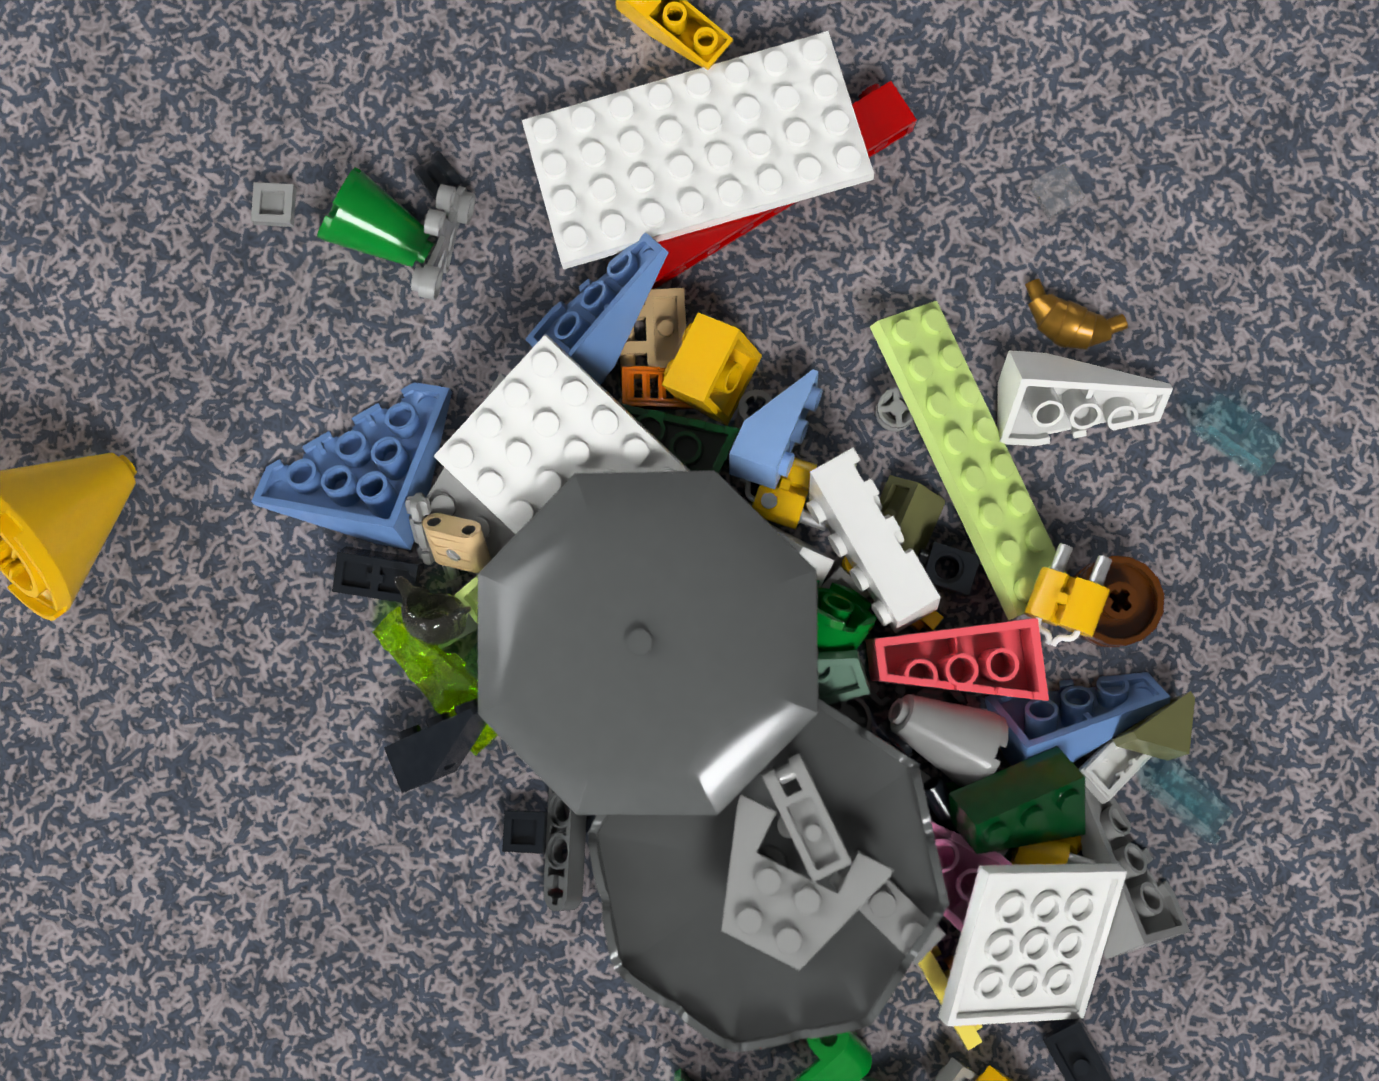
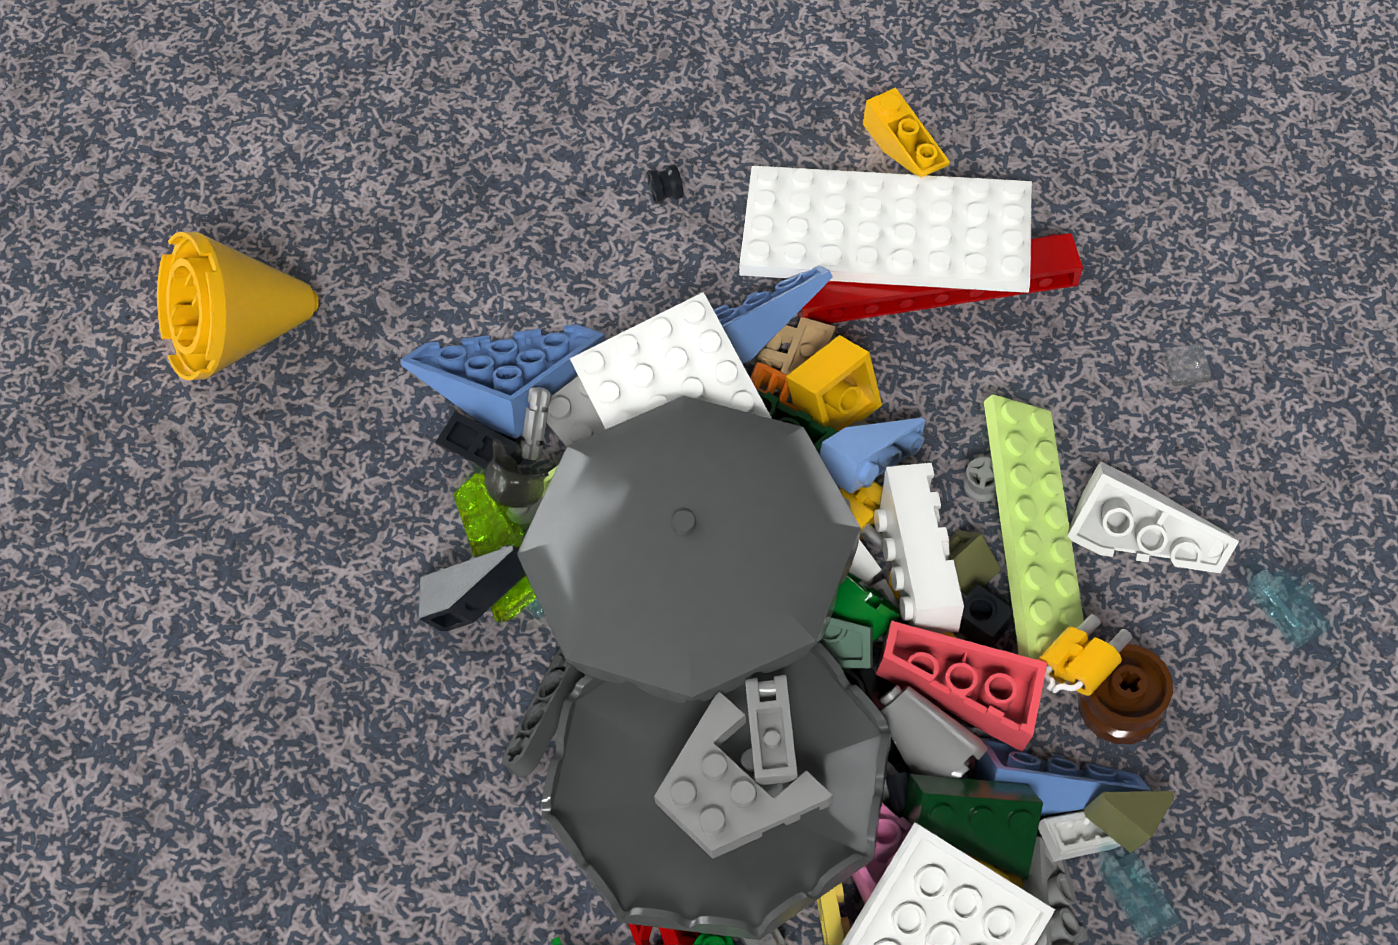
camera: 20 degrees right, 25 degrees down
(273, 204) = (523, 162): light grey plate -> none
(374, 223) = (597, 194): green cone -> none
(456, 544) = (553, 434): tan piece -> none
(459, 207) = (640, 232): light grey plant -> none
(524, 831) = (510, 695): black plate -> none
(894, 915) = (818, 853): light grey plate -> none
(1069, 322) = (1165, 468): pearl gold piece -> none

